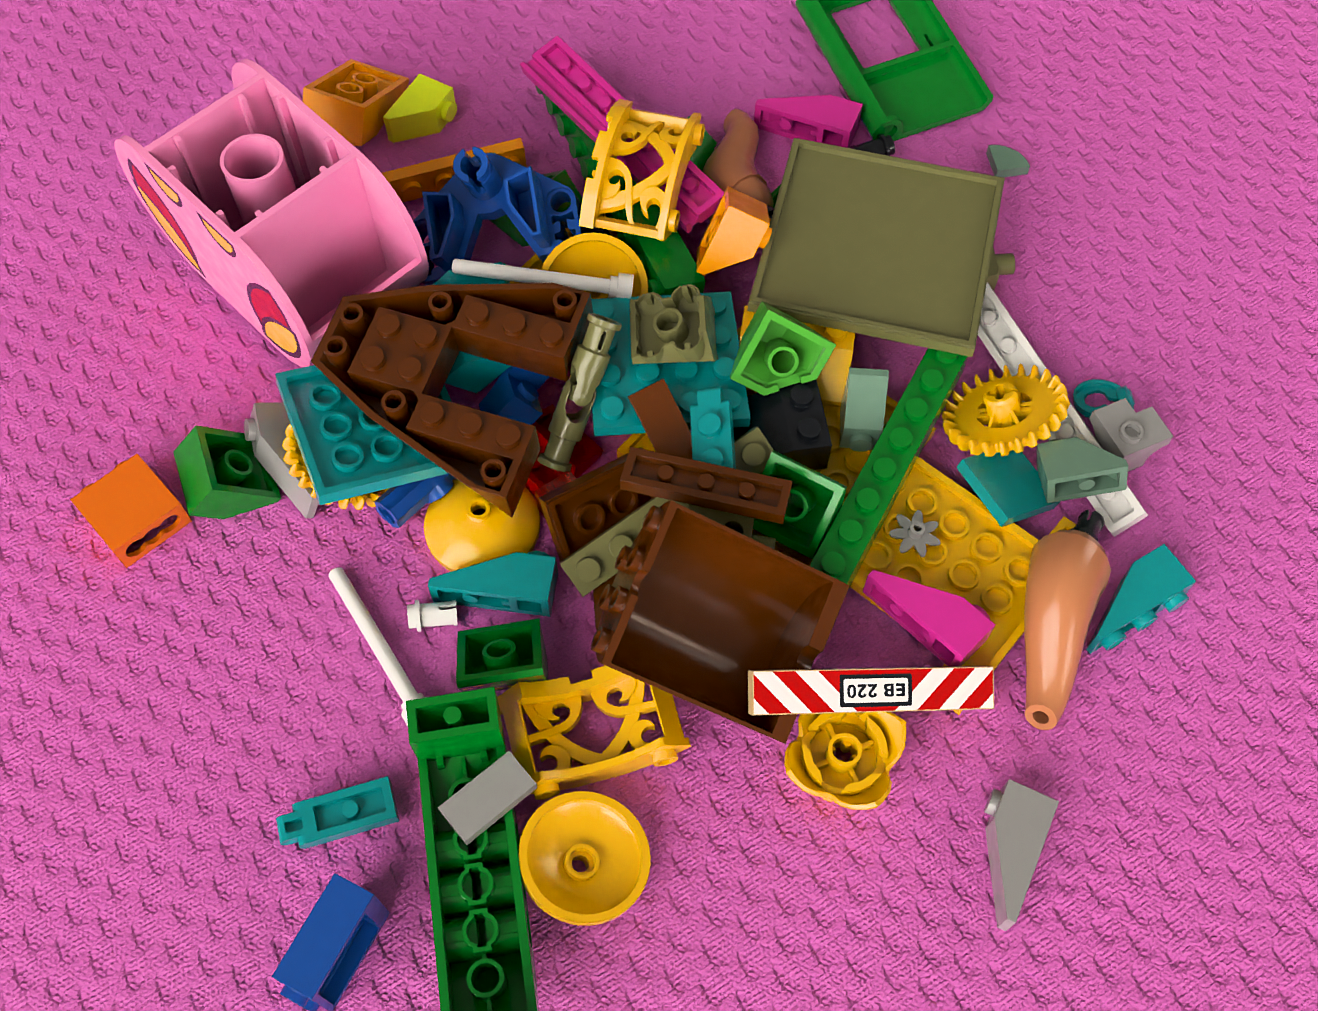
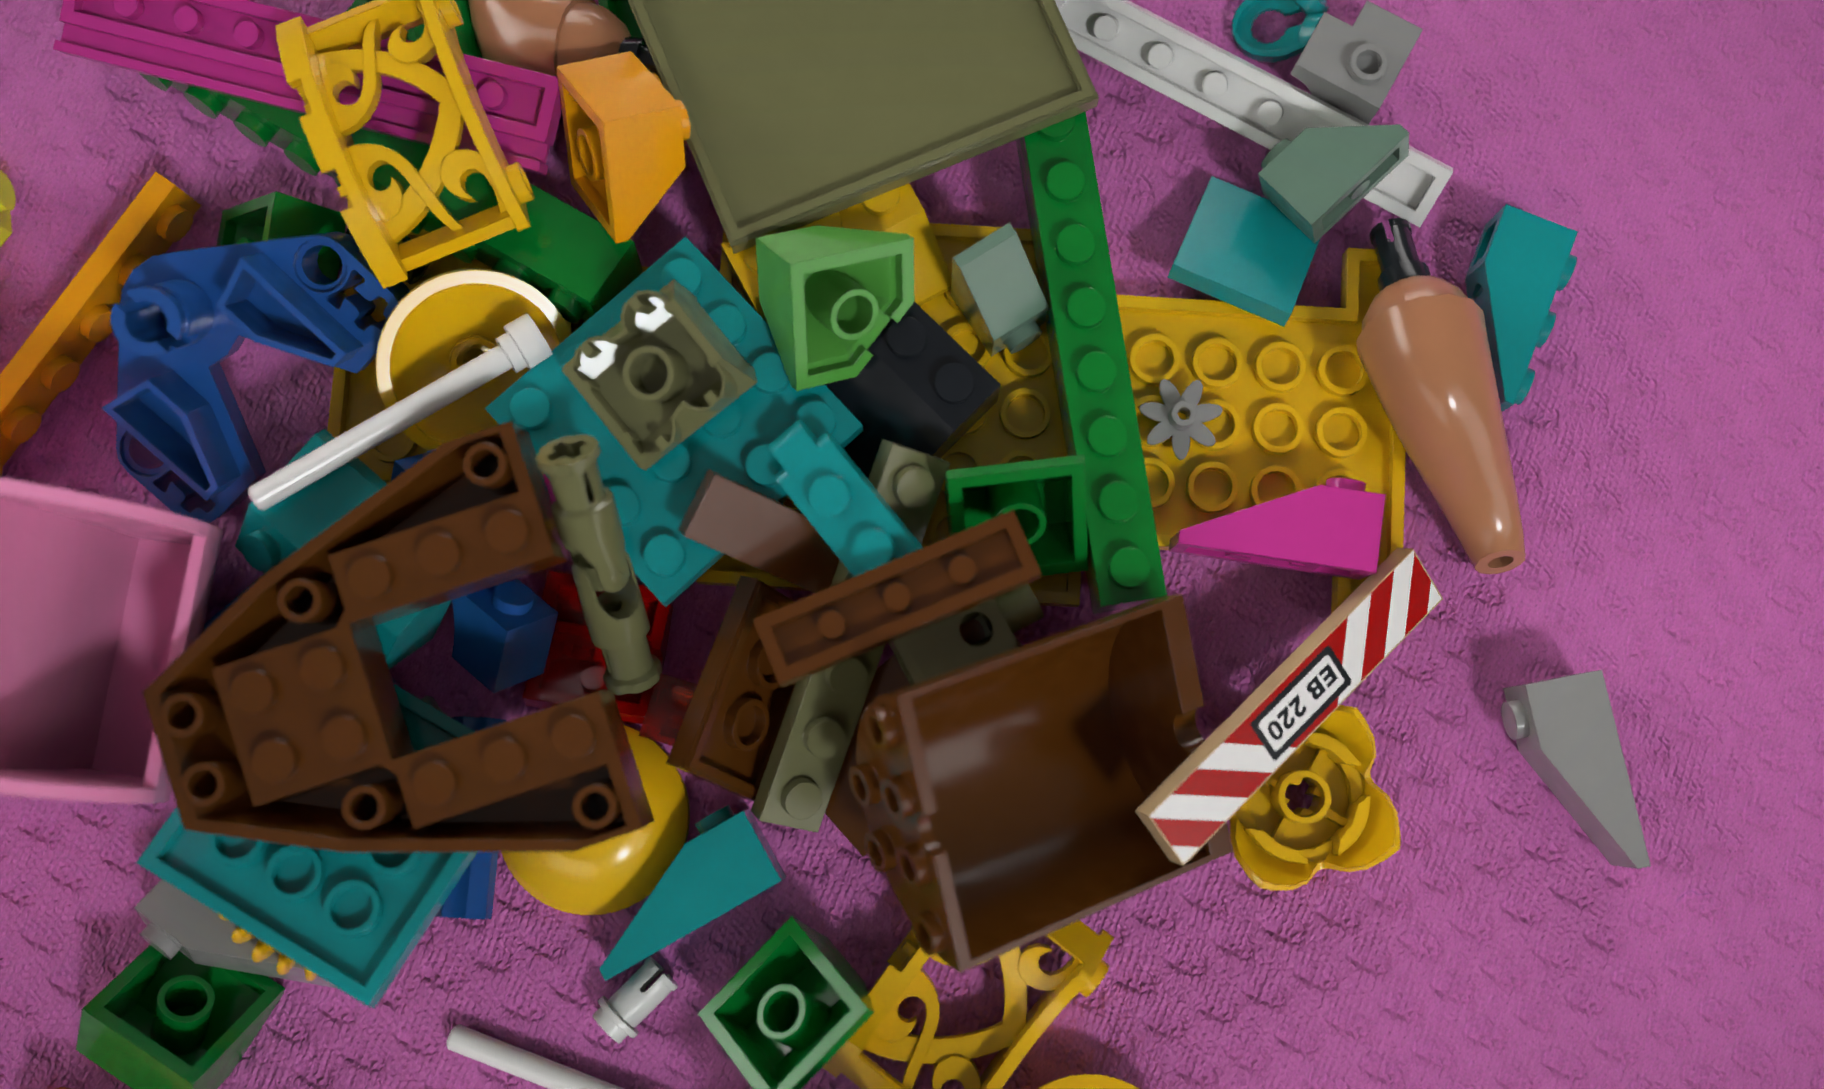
camera: 35 degrees left, 20 degrees up
(1000, 406) = (1156, 120): yellow gear -> none

